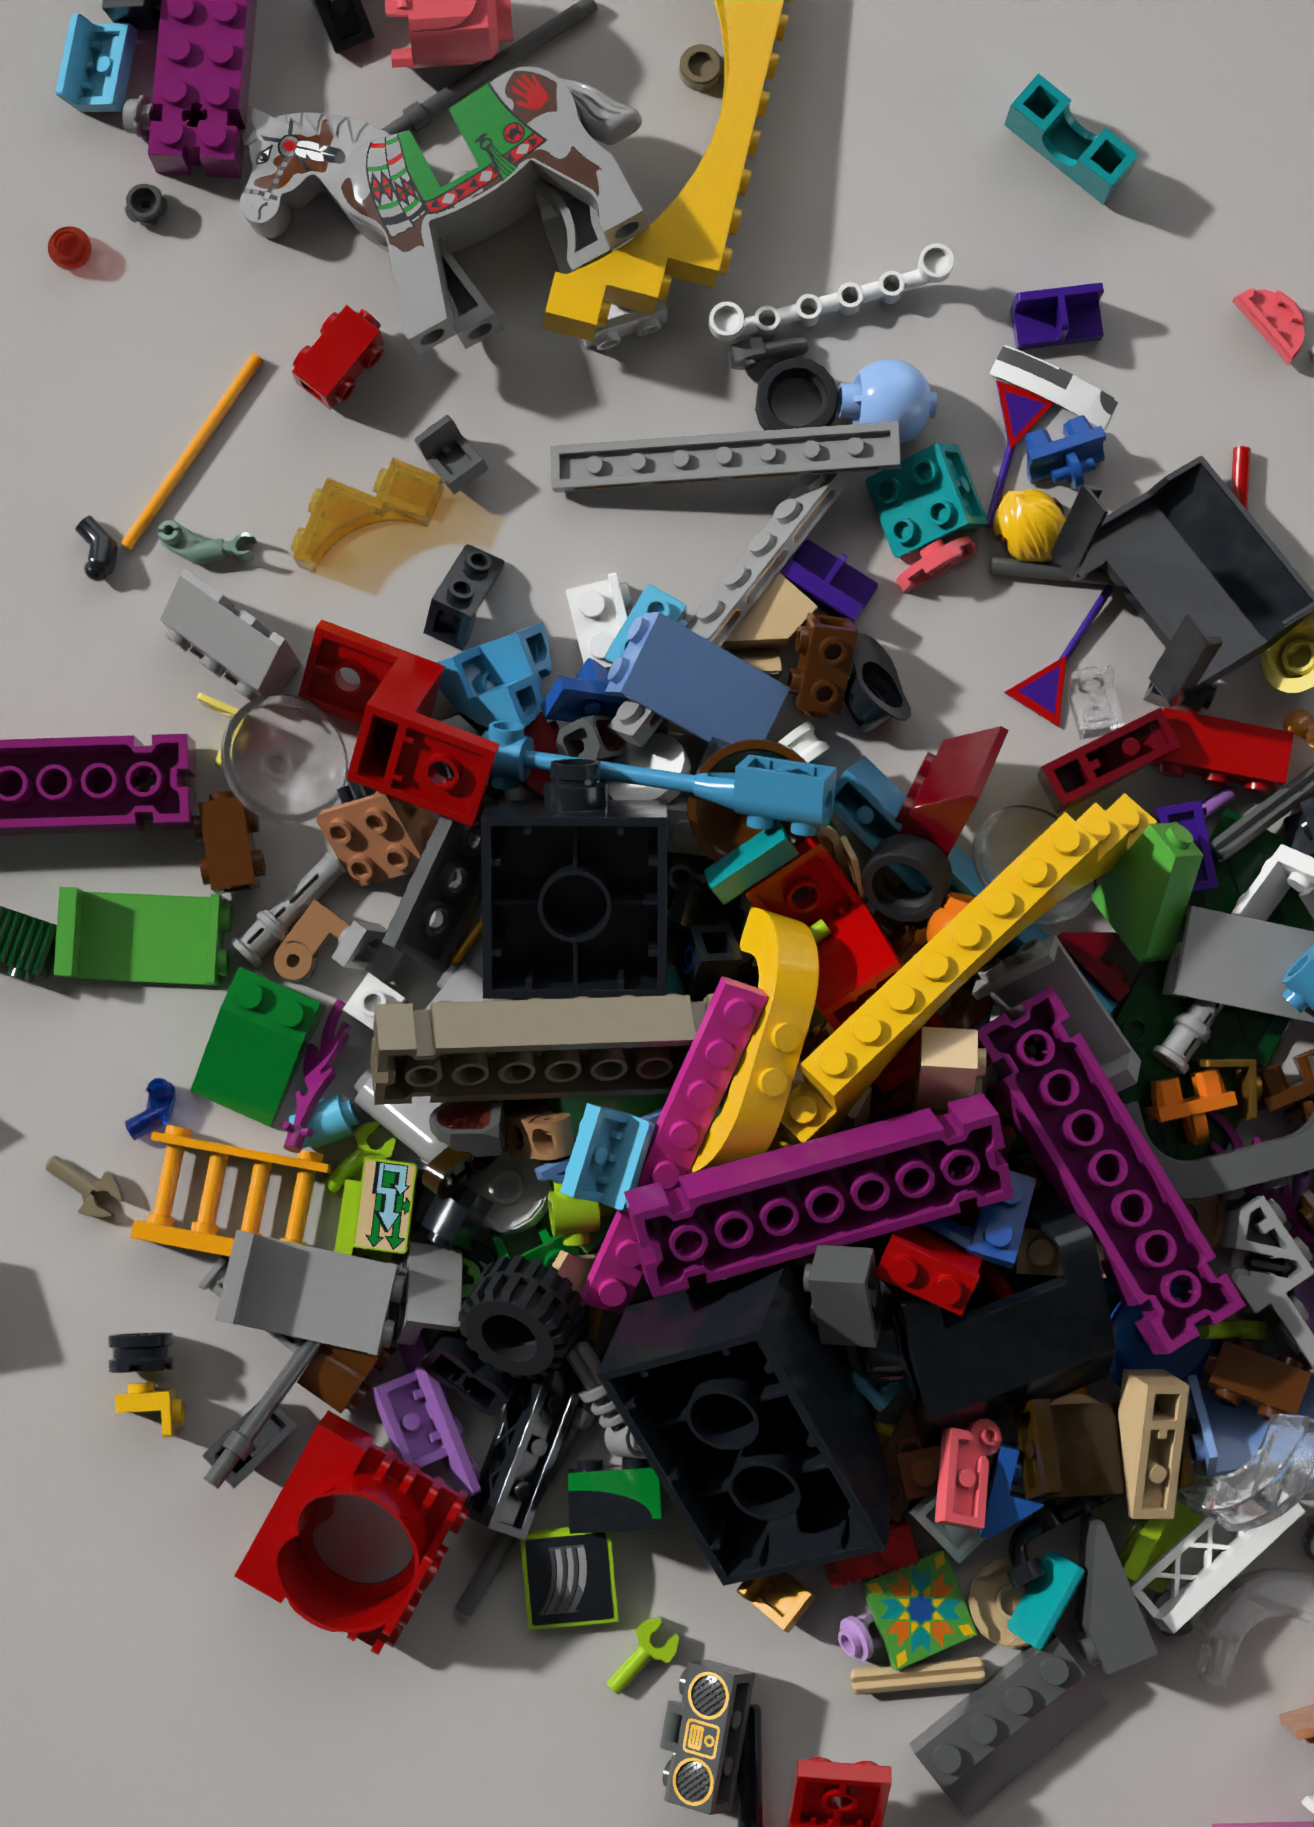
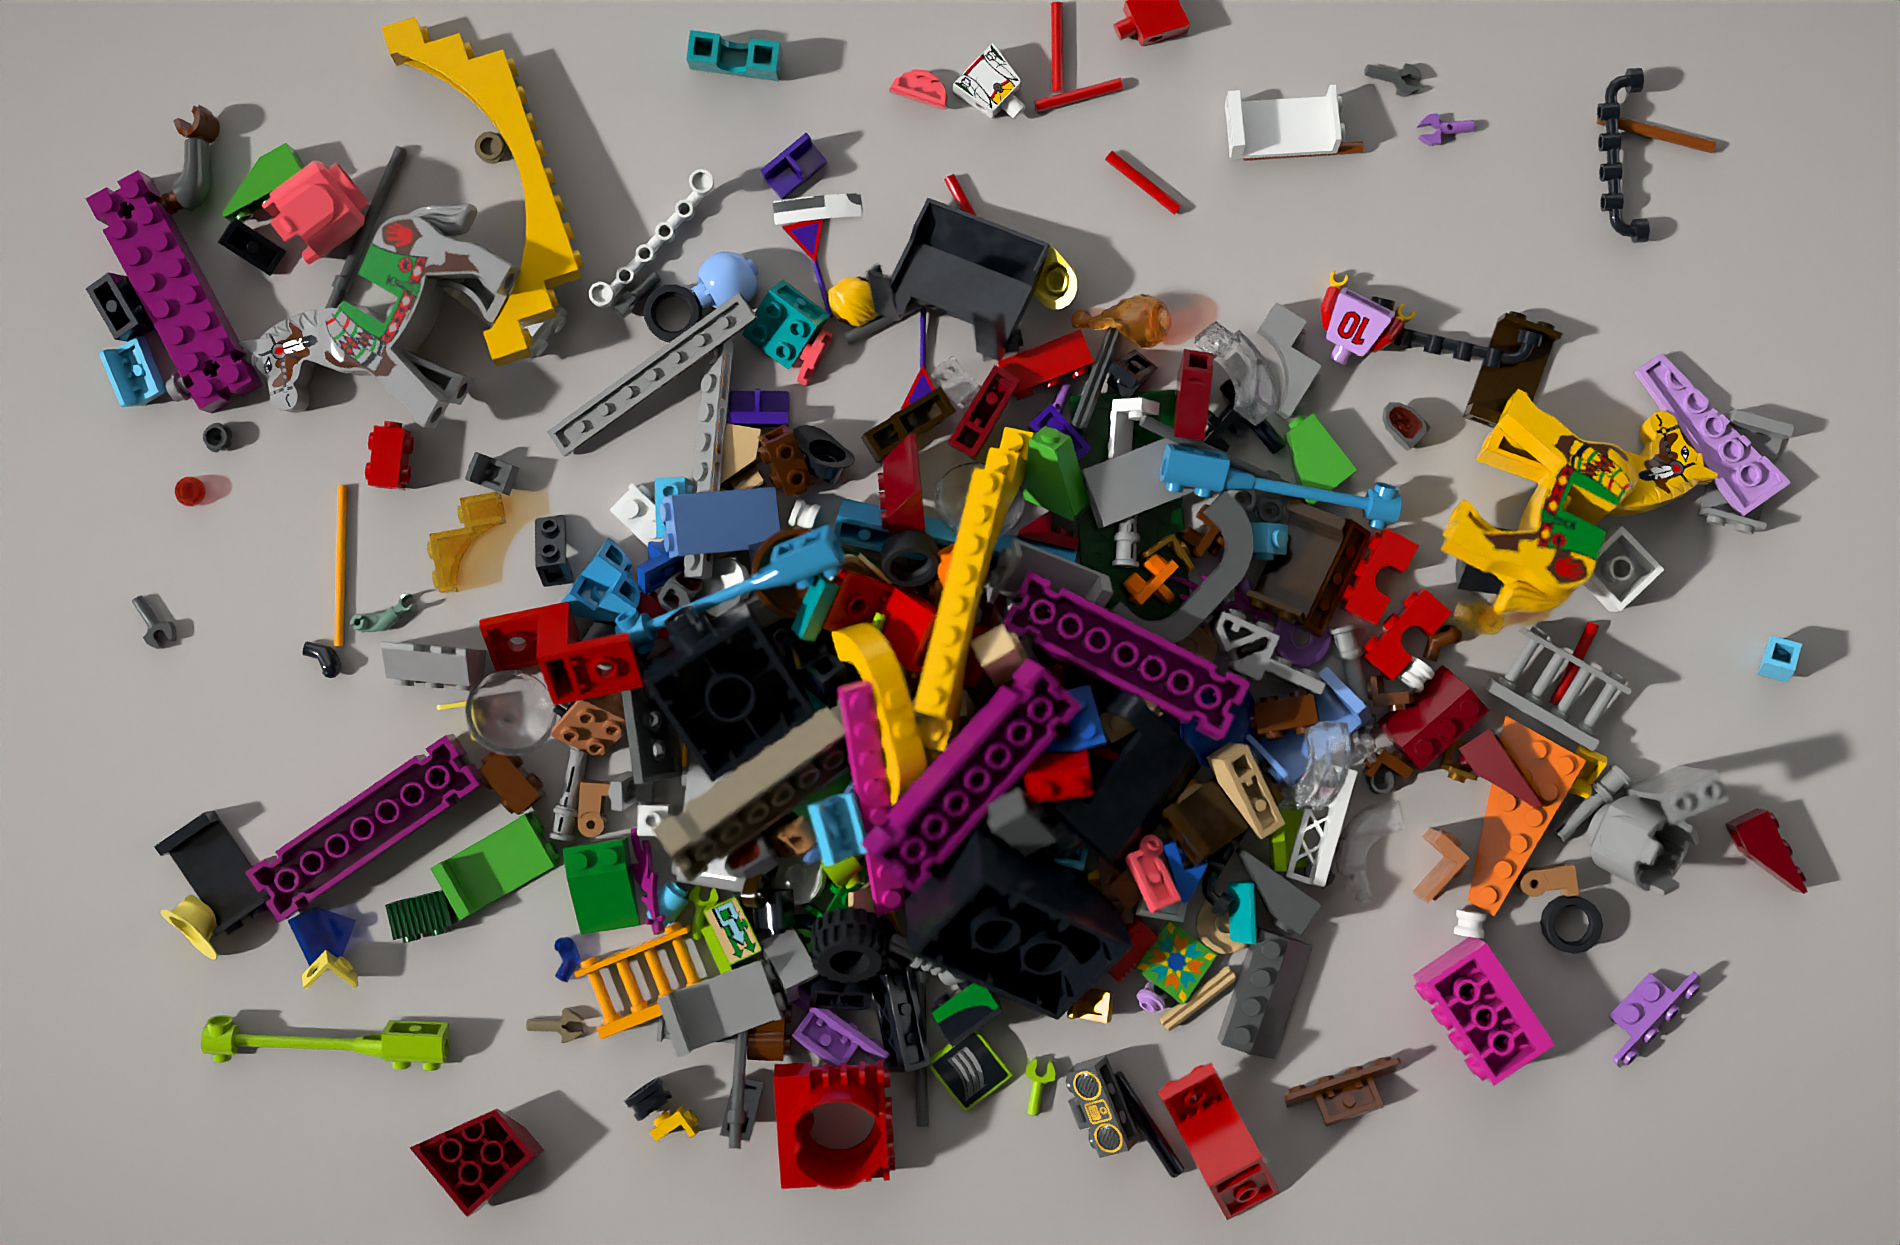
camera: 30 degrees left, 5 degrees up
(1025, 714) = (914, 418): none -> dark brown slope
(1065, 457) = (851, 246): blue hips -> none
(1235, 1330) = (1257, 692): lime bar -> none

